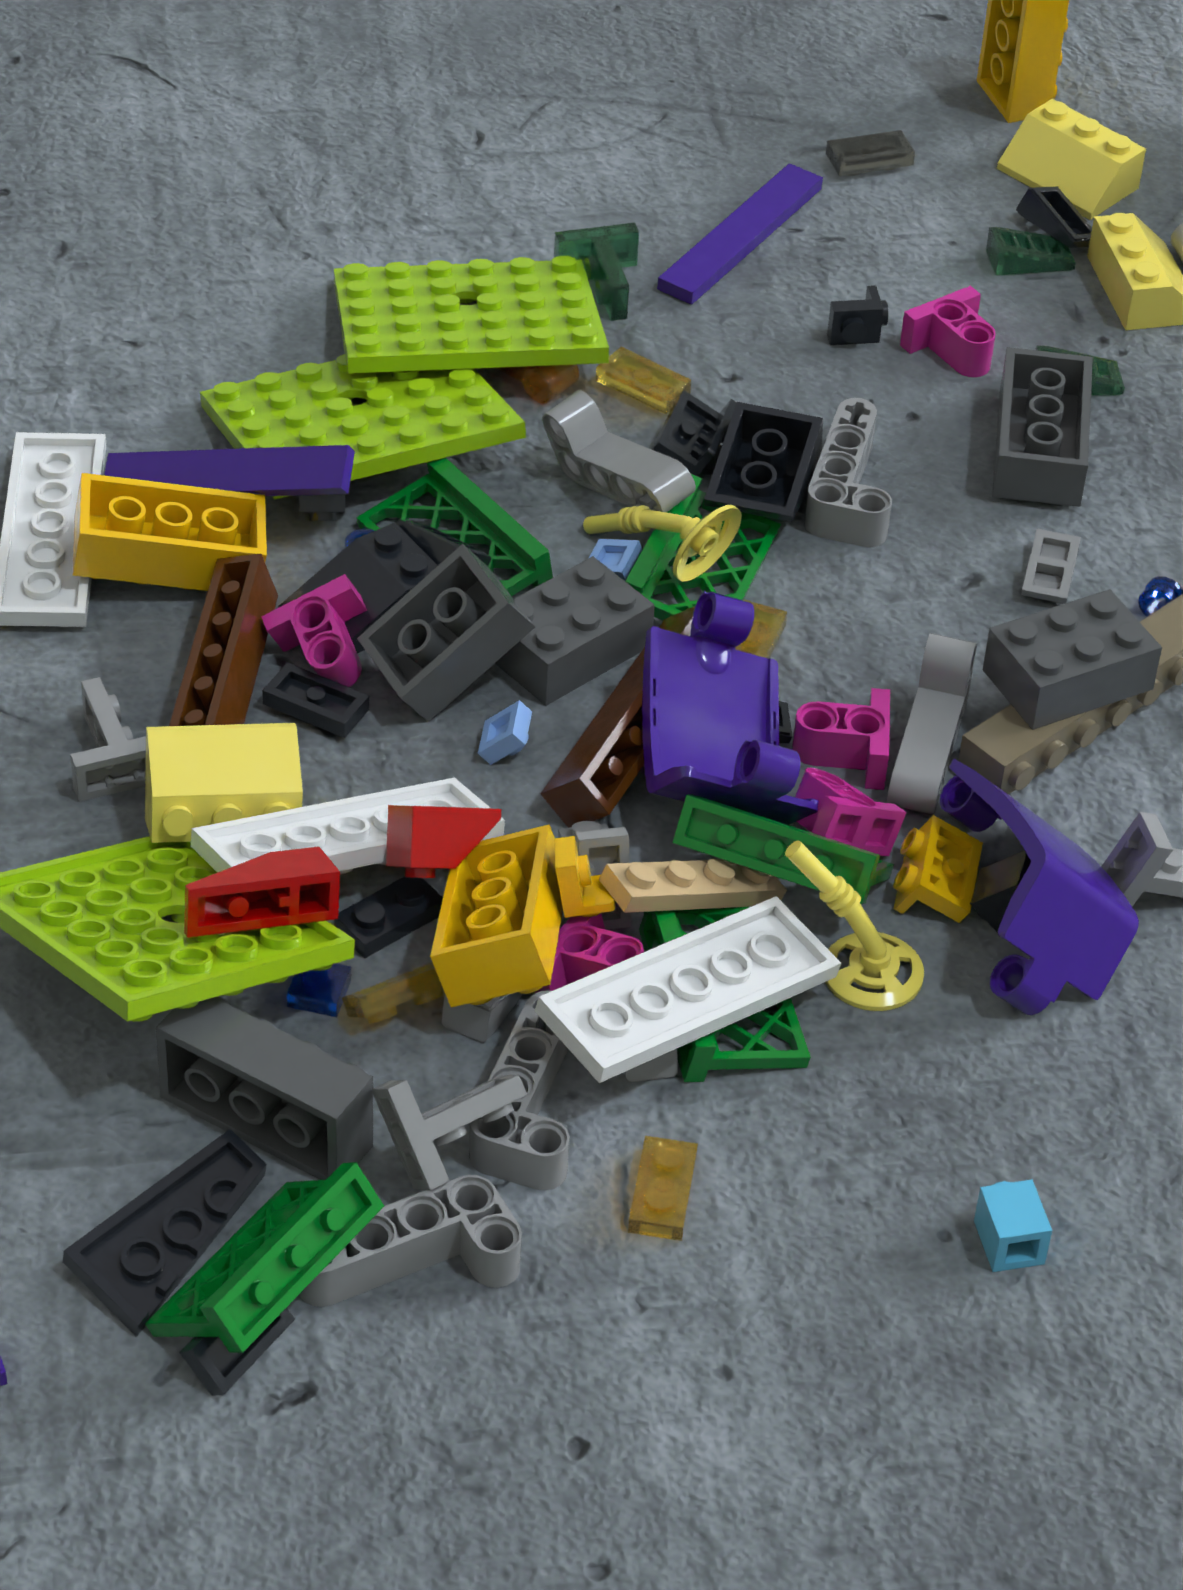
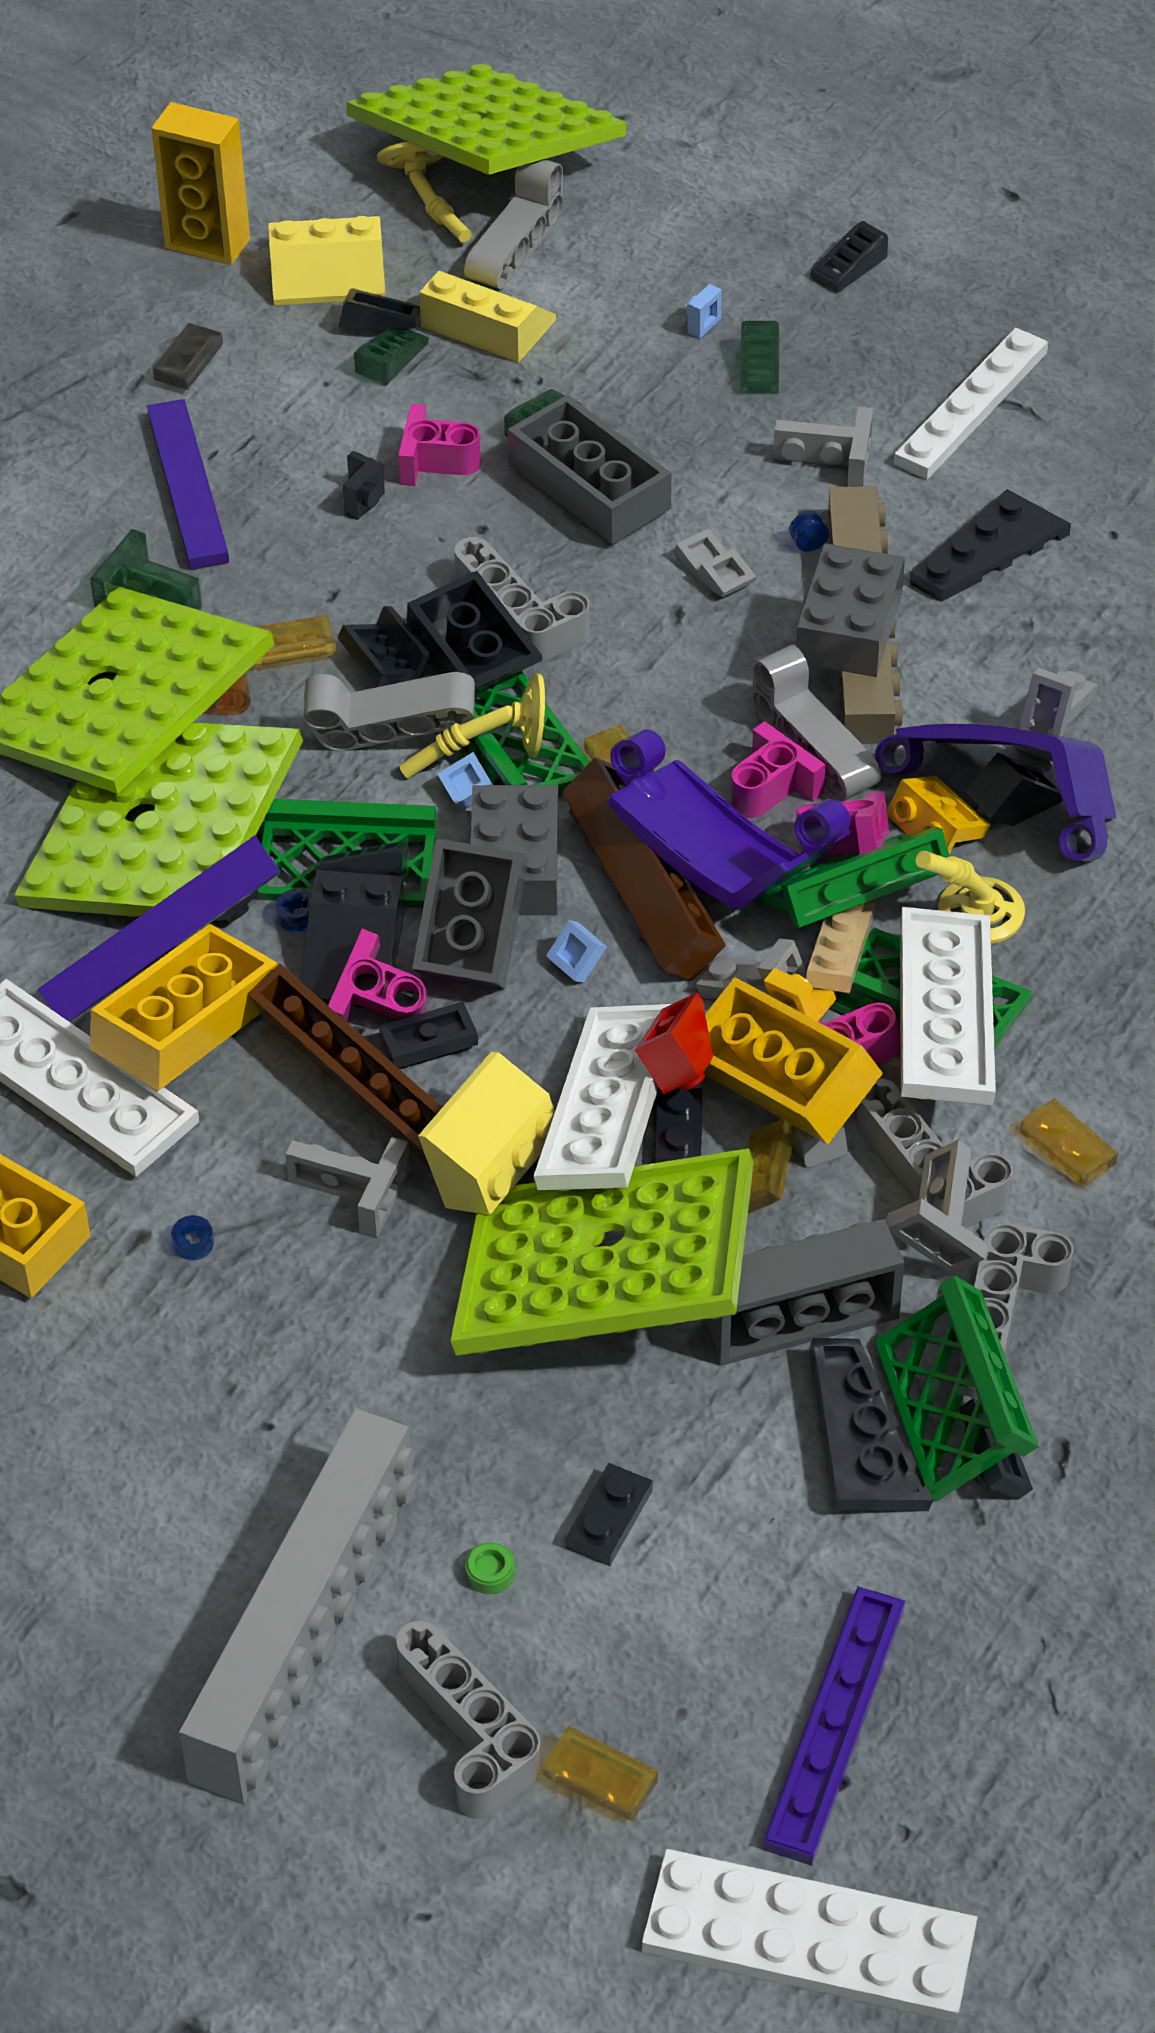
camera: 45 degrees left, 5 degrees up
(264, 893) = (667, 1158): red slope -> none

